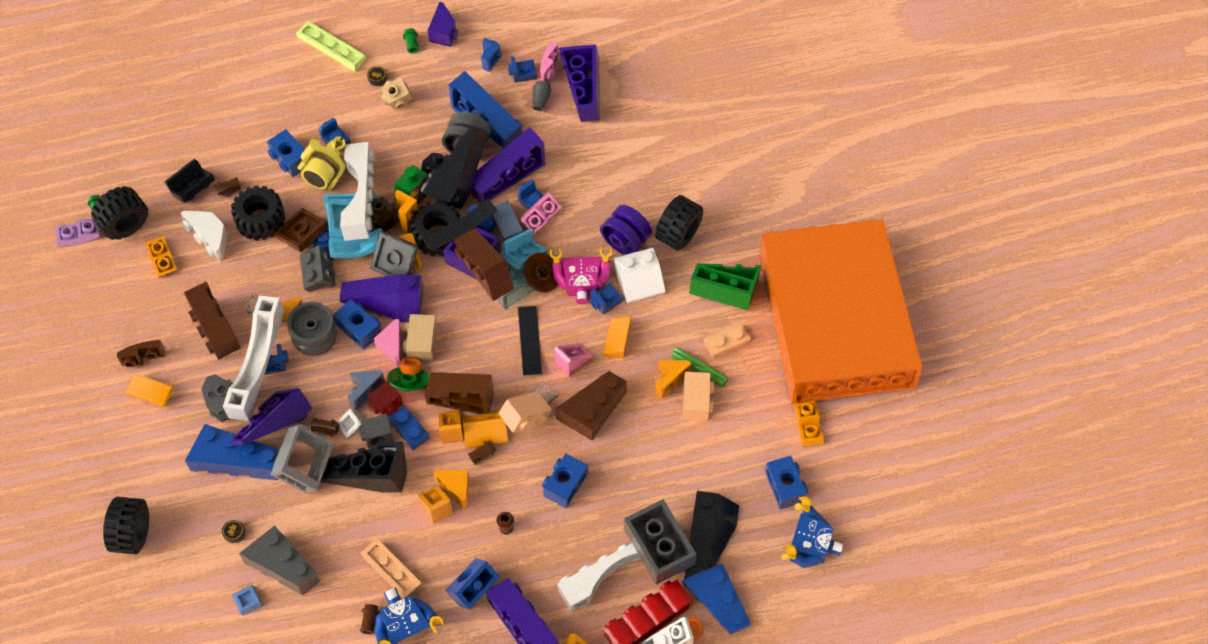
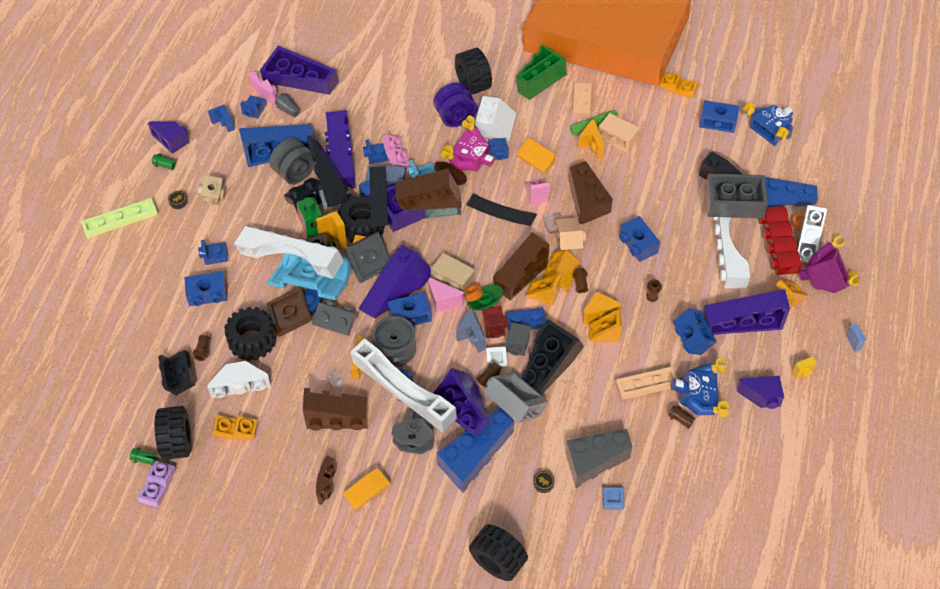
camera: 60 degrees left, 5 degrees down
(317, 171) = (245, 273): light yellow piece -> none

